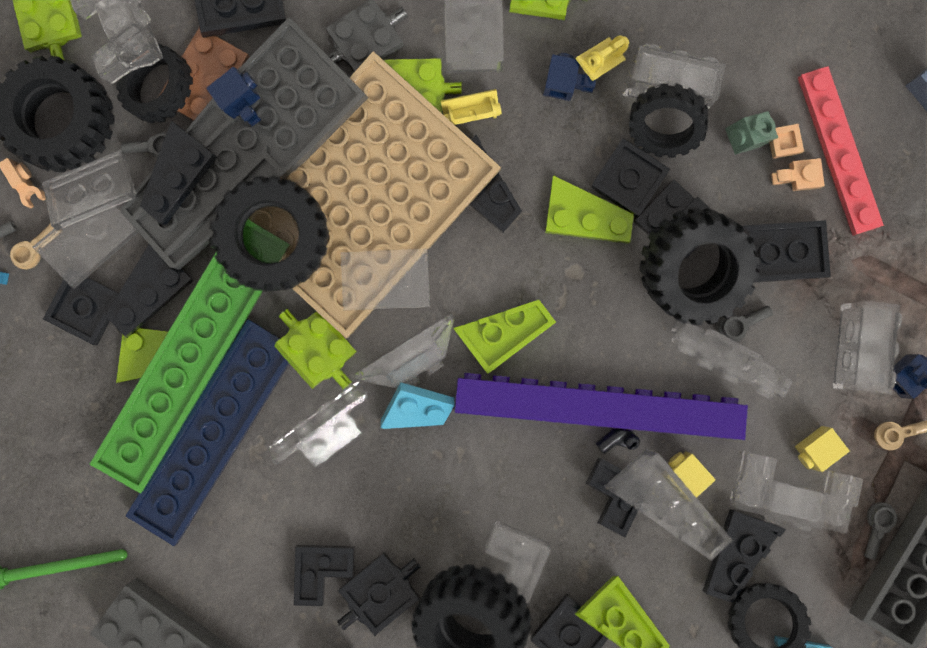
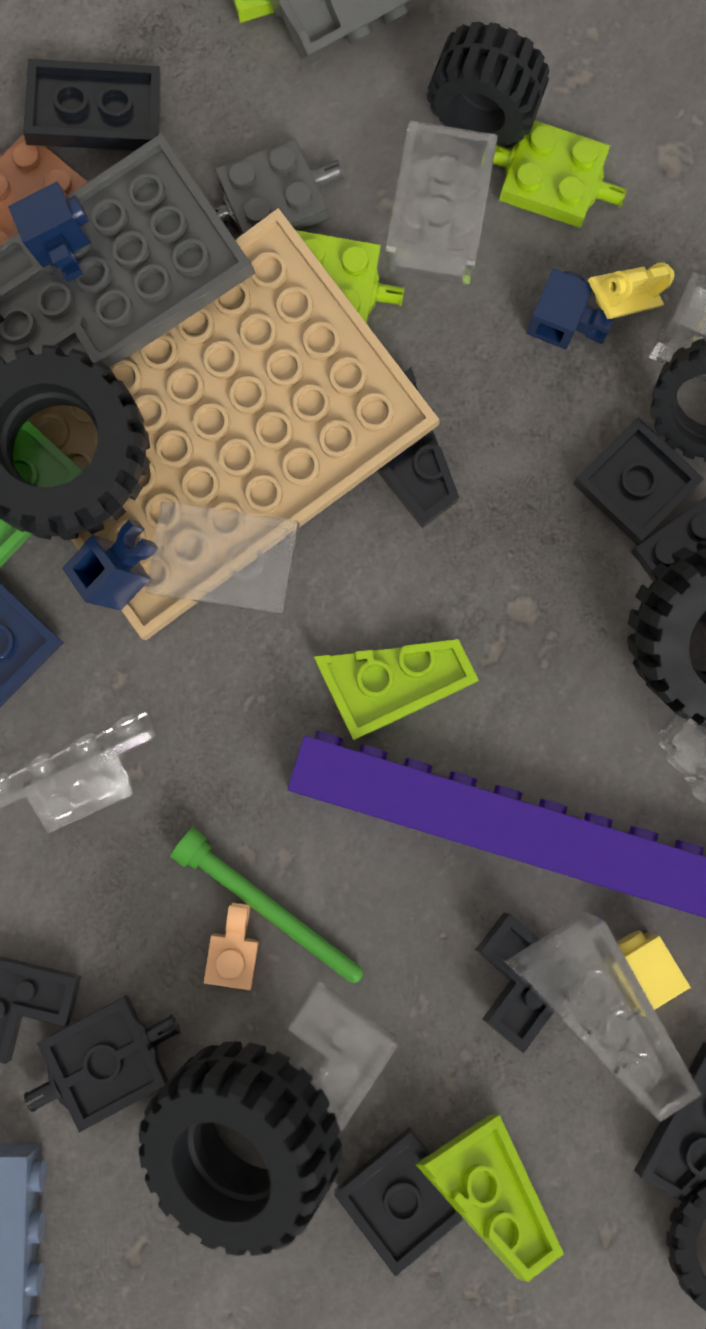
camera: 10 degrees right, 5 degrees down
(315, 349) = (88, 648): lime plate -> none
(319, 302) = (110, 571): none -> dark blue brick
(407, 460) = (196, 853): none -> bright green piece
(411, 358) = (238, 690): clear wedge -> none
(416, 408) = (228, 771): medium azure wing -> none
(441, 516) = (232, 955): none -> light nougat plate
(472, 107) = (414, 326): light yellow hinge -> none
(585, 215) = (557, 525): lime wing -> none
(619, 437) = (543, 886): black arm -> none

